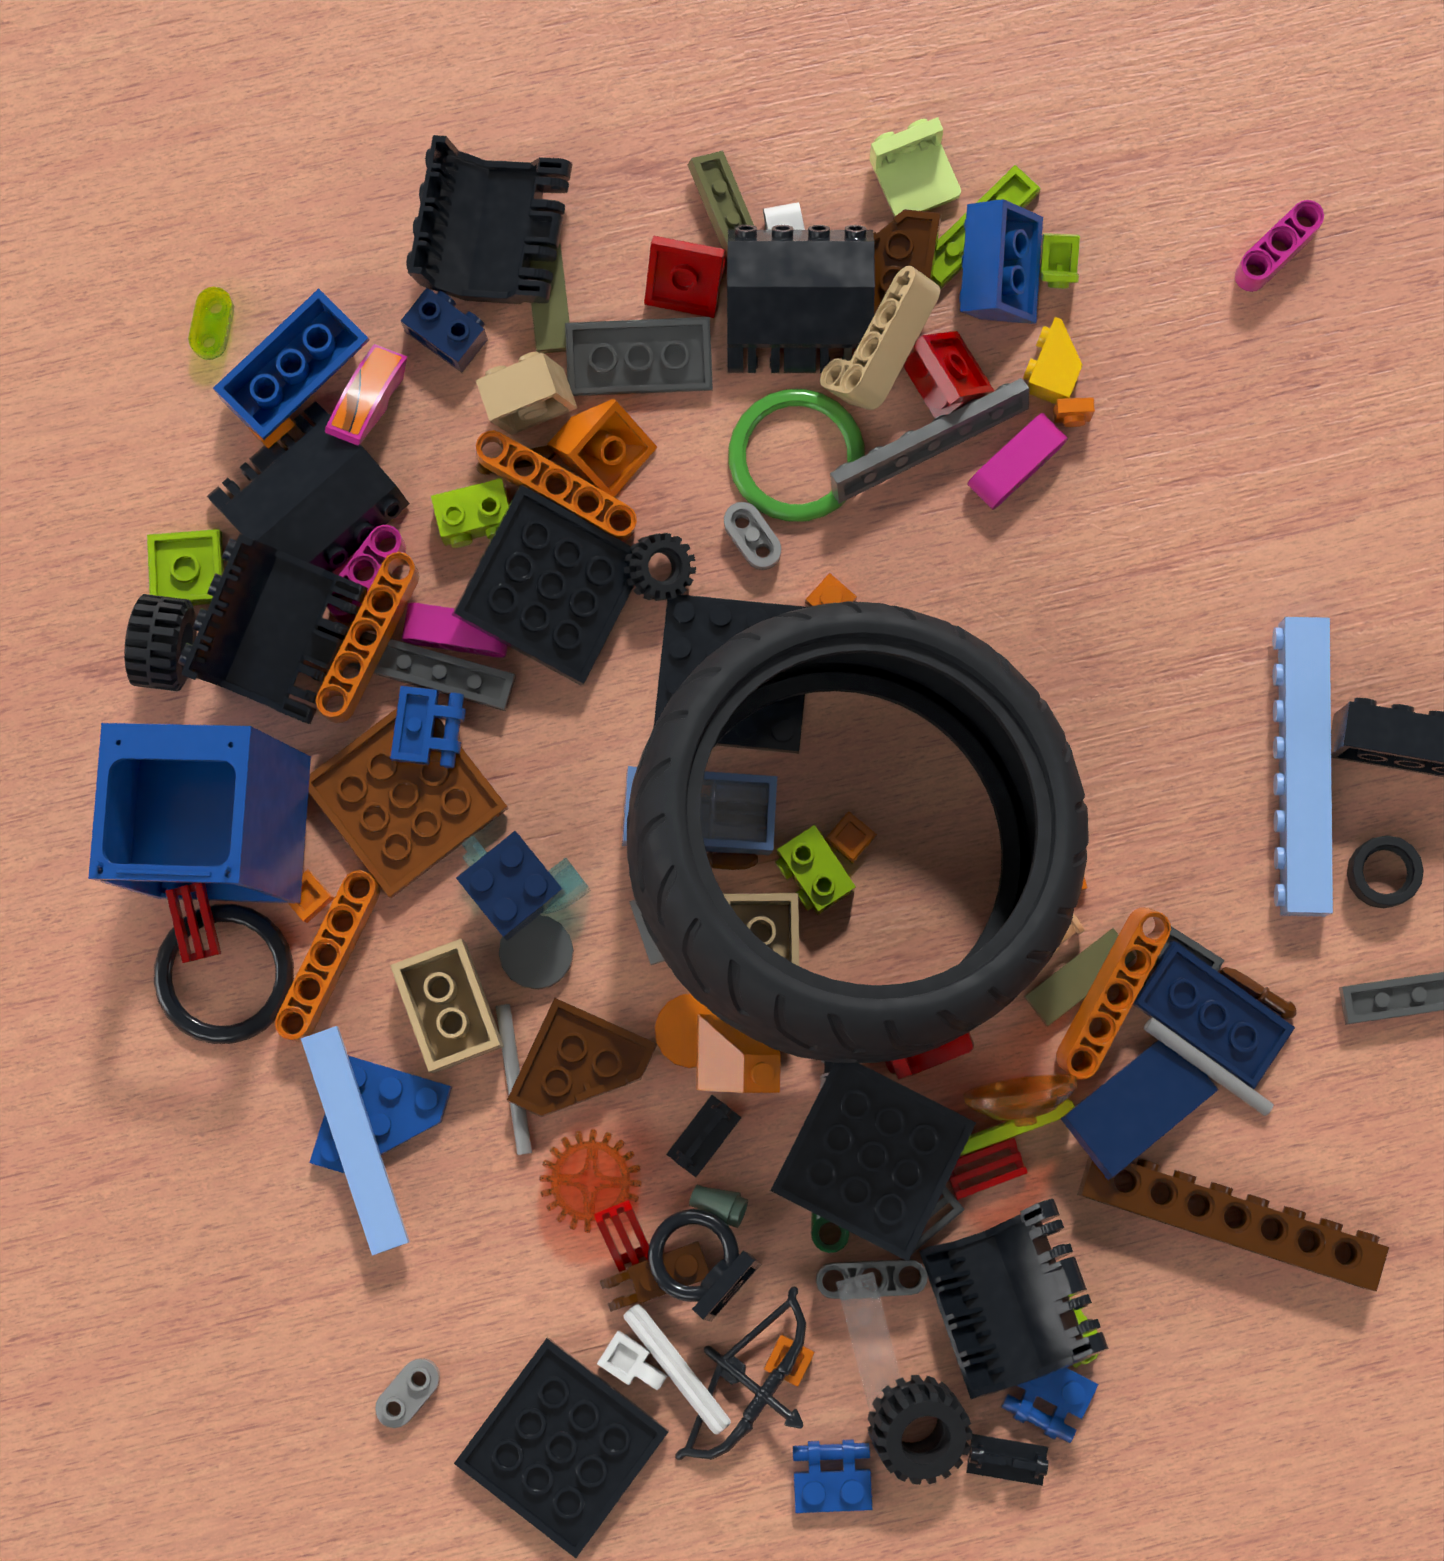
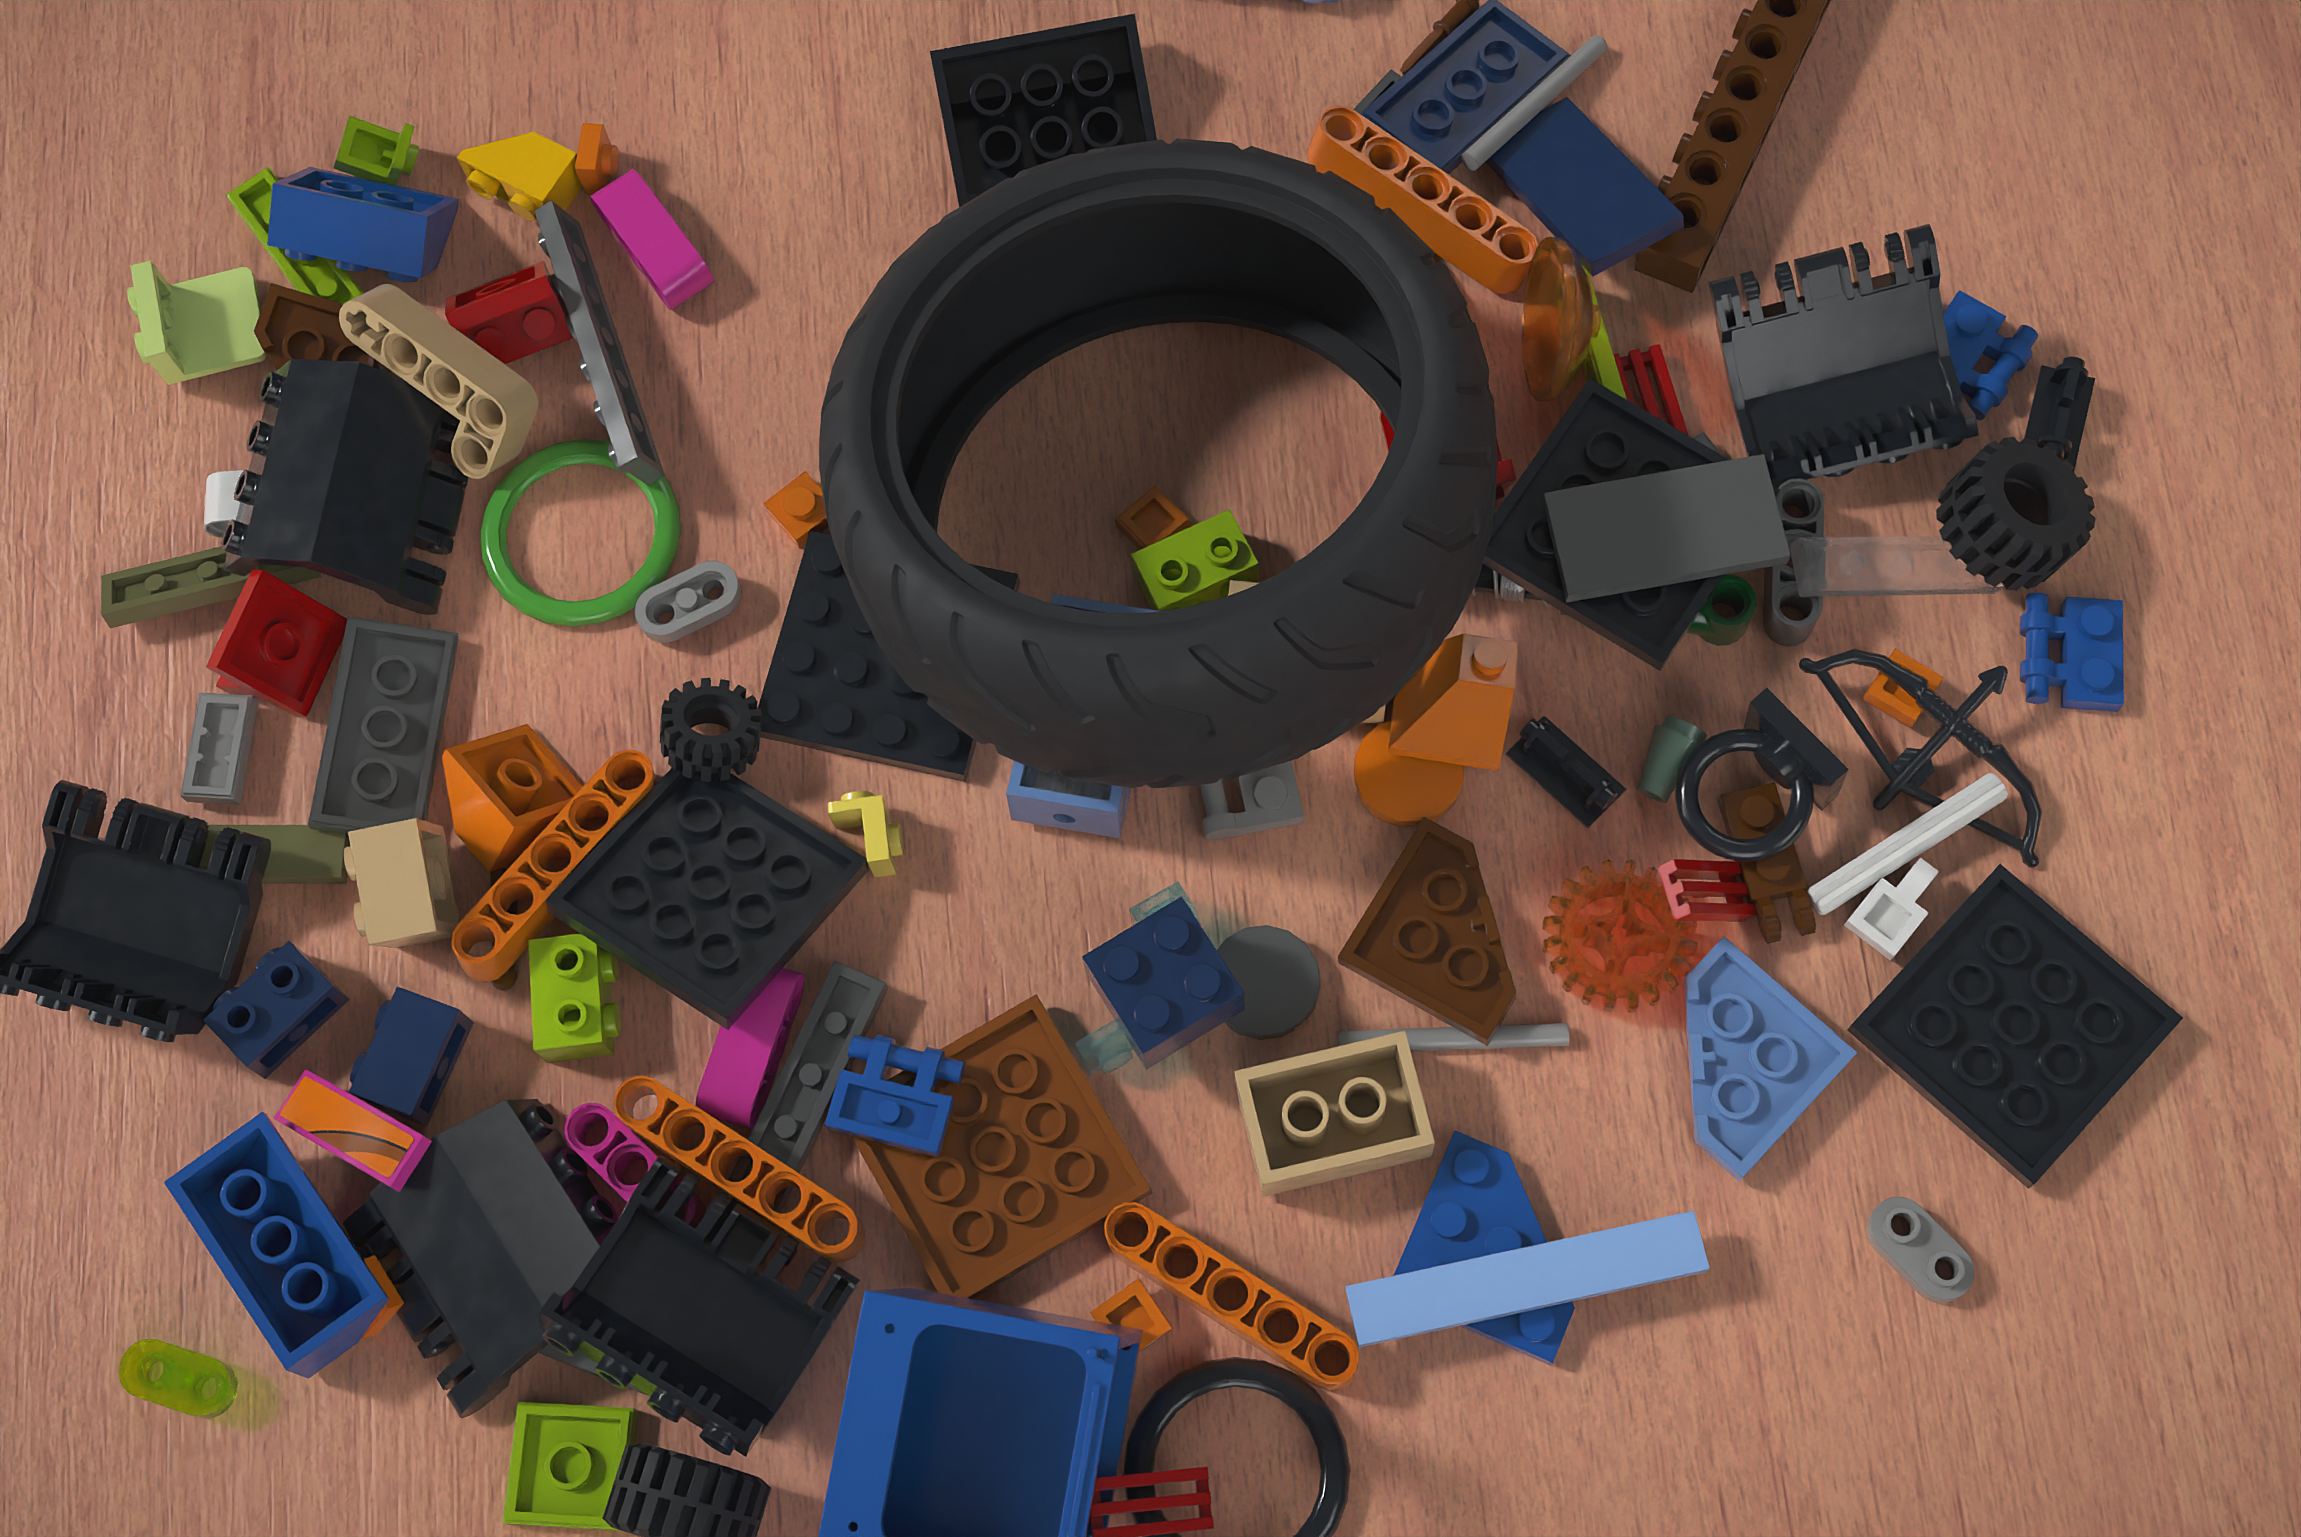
camera: 80 degrees left, 10 degrees down
(421, 419) = (410, 1056): none -> dark blue brick
(519, 1274) = (1751, 1057): none -> medium blue plate
(602, 690) = (881, 836): none -> light yellow bracket
(613, 254) = (219, 748): none -> light grey plate
(866, 1184) = (1665, 528): none -> dark grey tile
(1155, 717) = (1040, 99): none -> black slope

